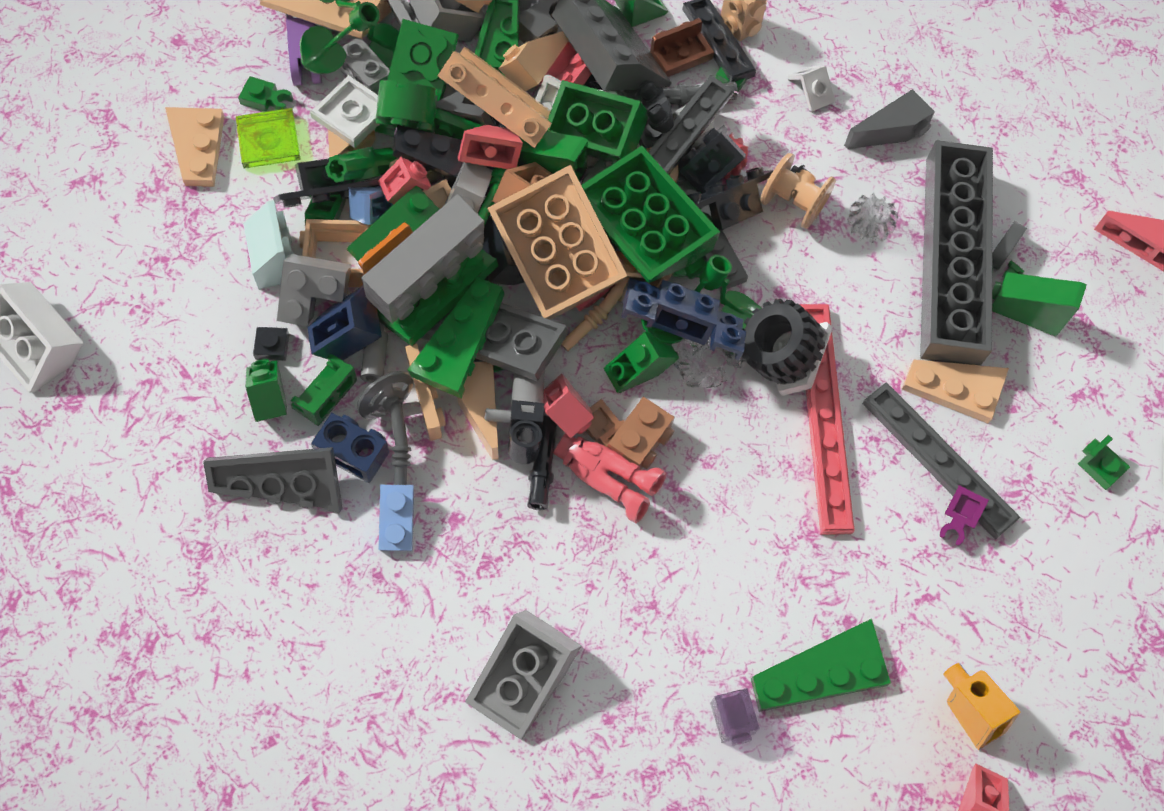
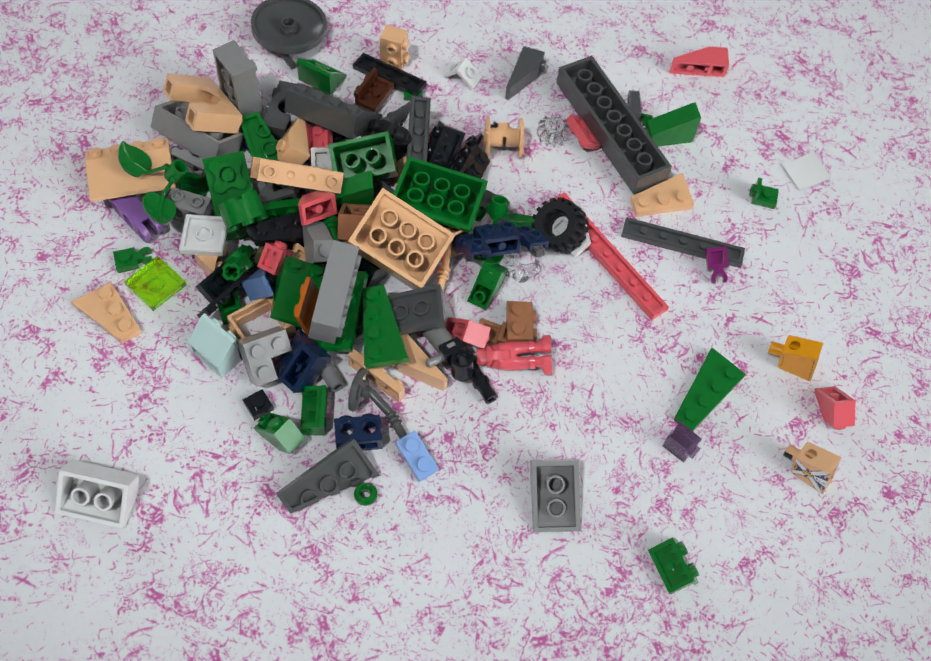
camera: 35 degrees left, 5 degrees down
(303, 516) = (365, 487): none -> green plate
(910, 242) = (584, 134): none -> coral plate

